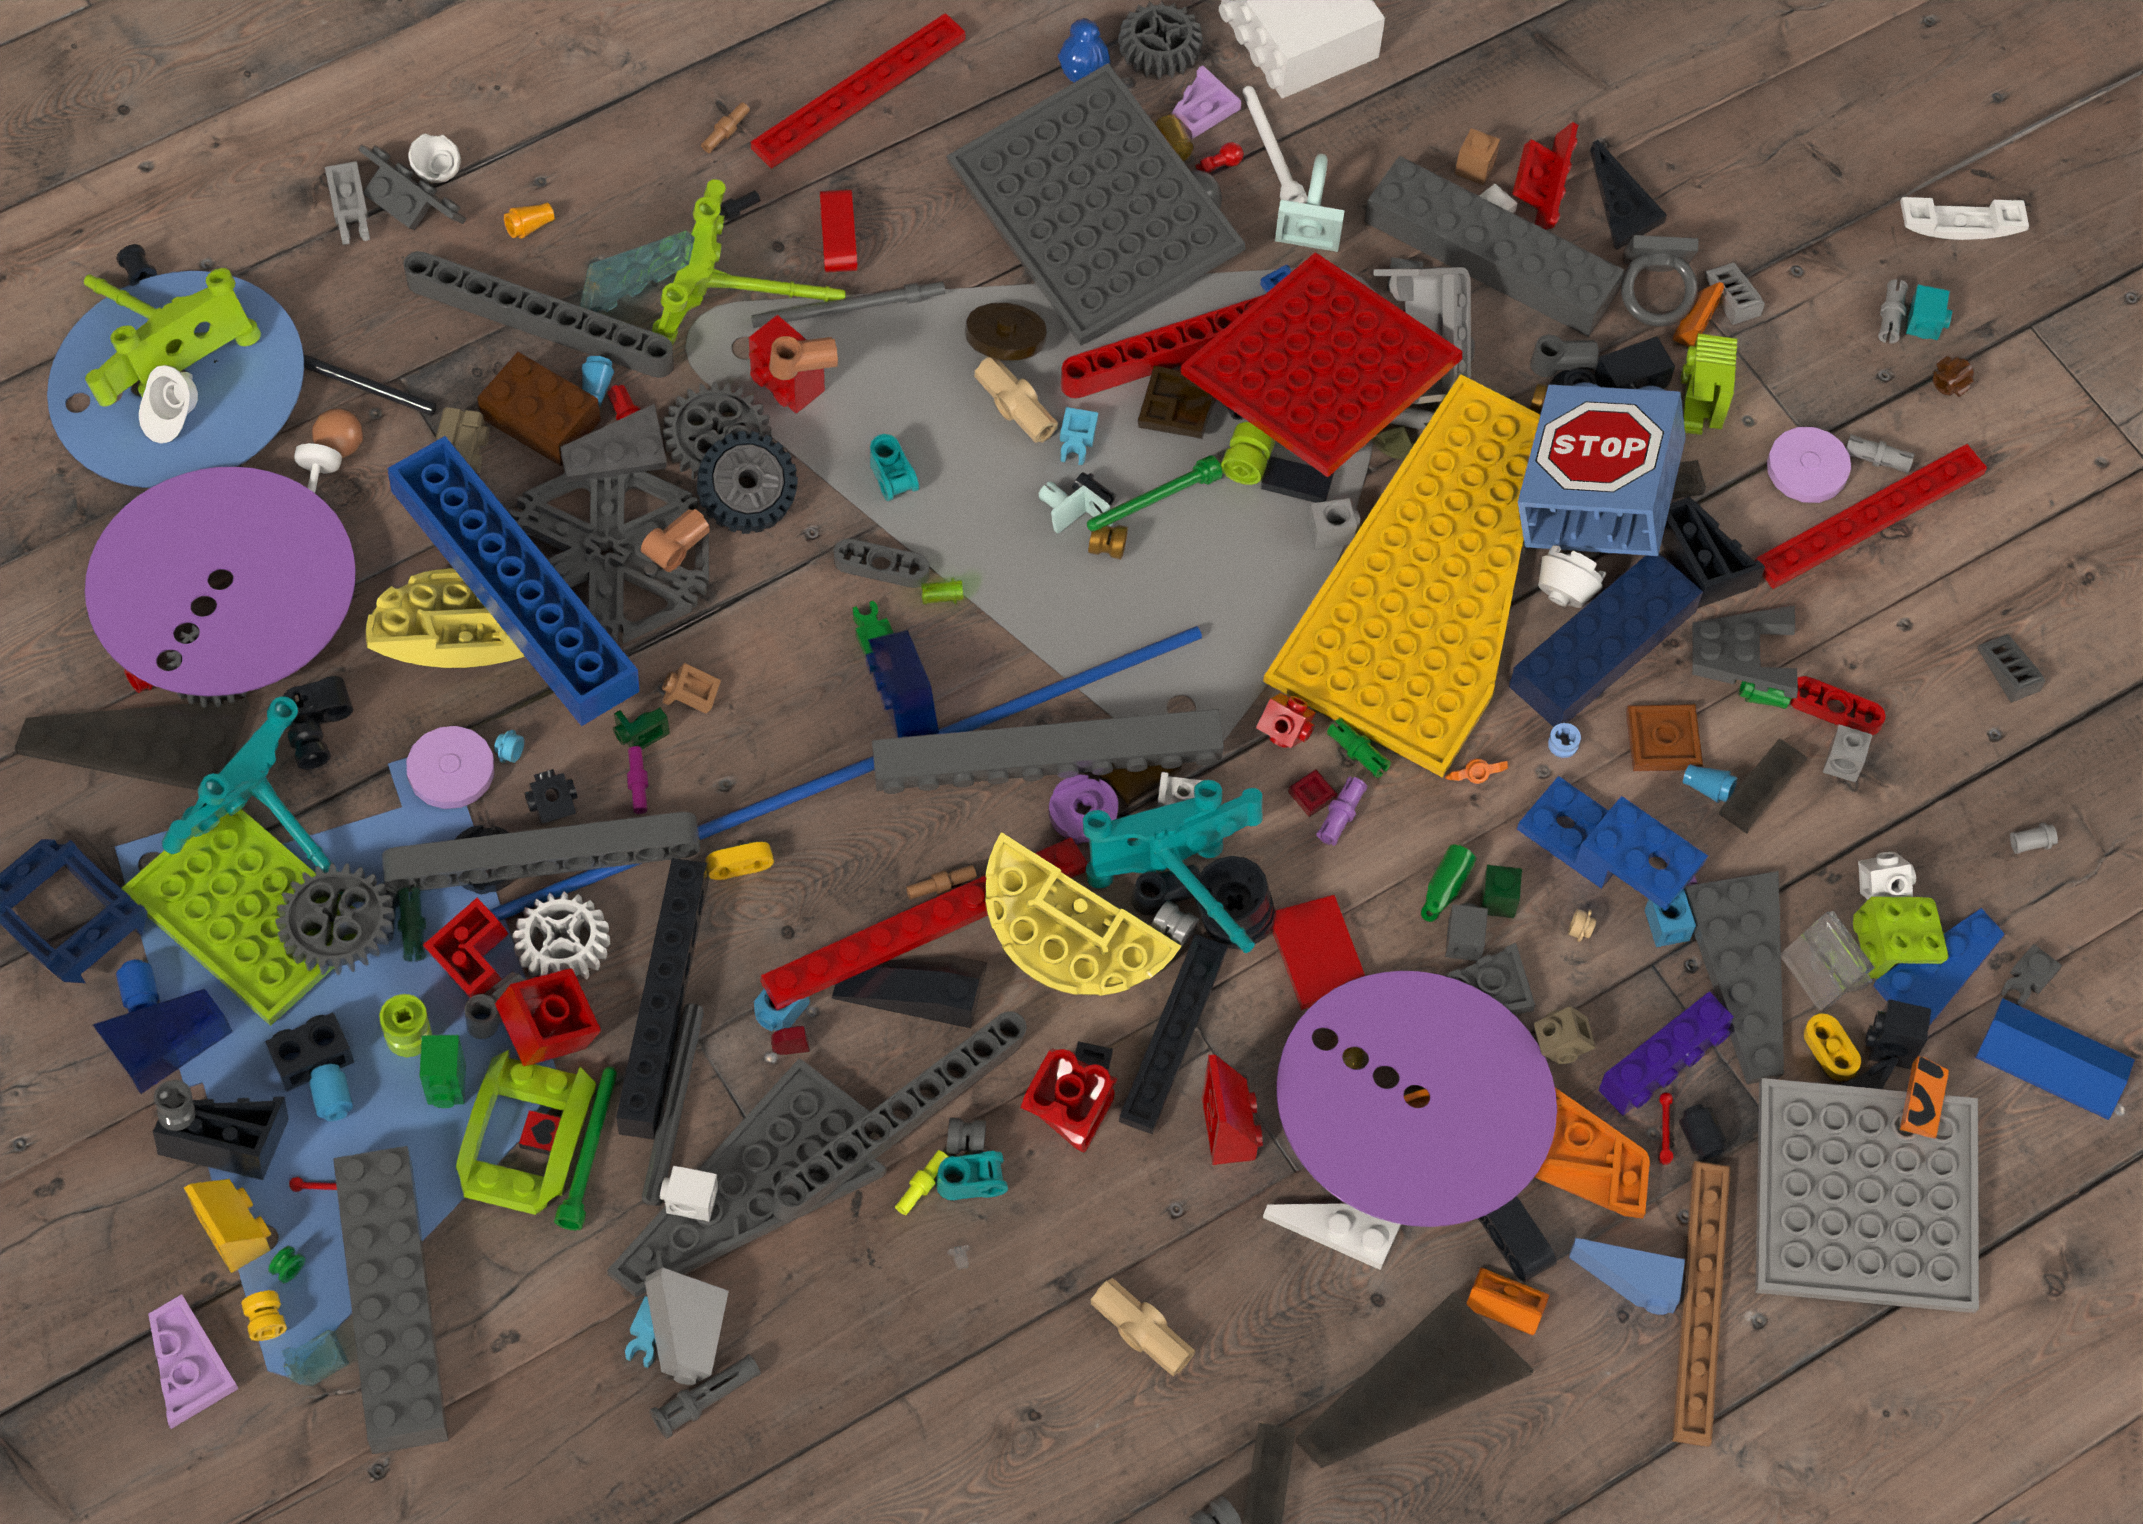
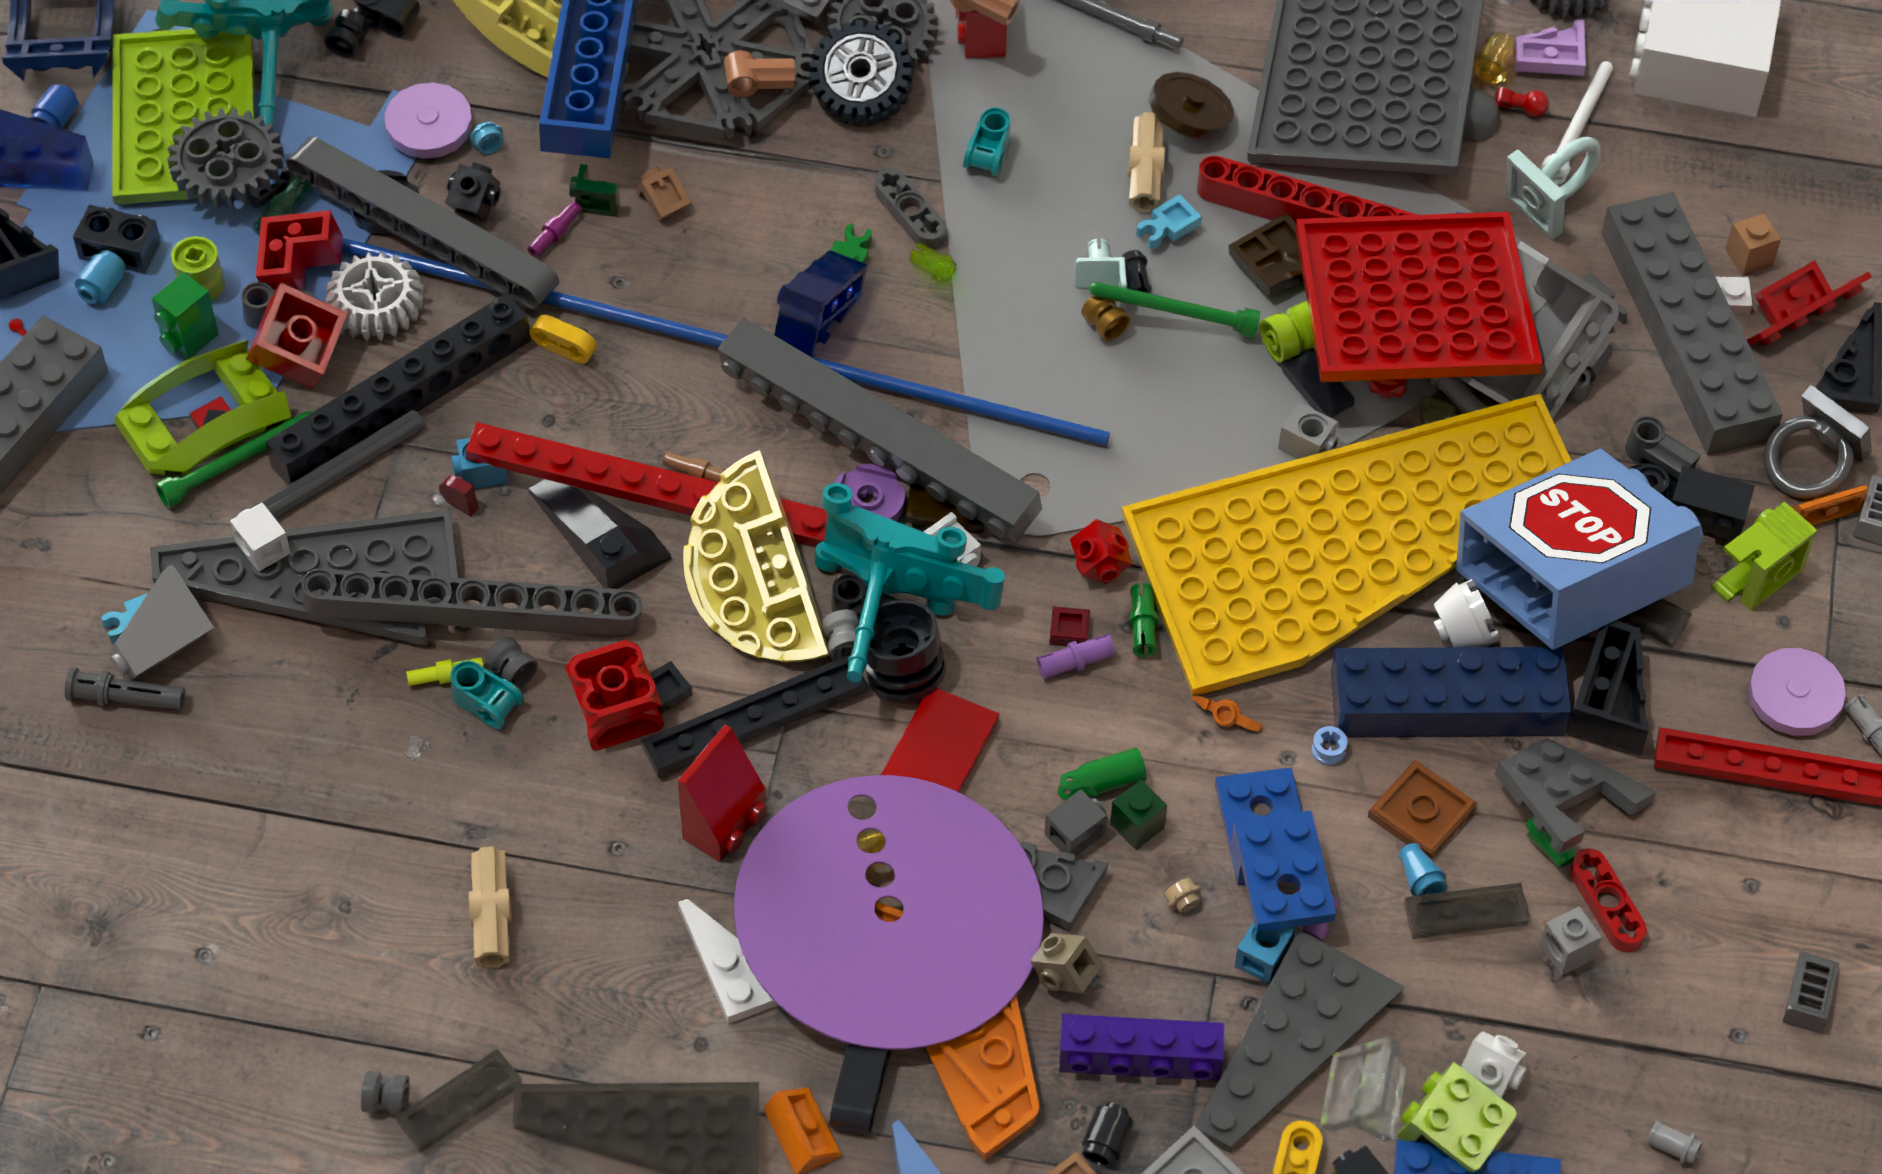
camera: 45 degrees right, 5 degrees down
(1665, 1156) = (1059, 1130): red hinge -> none

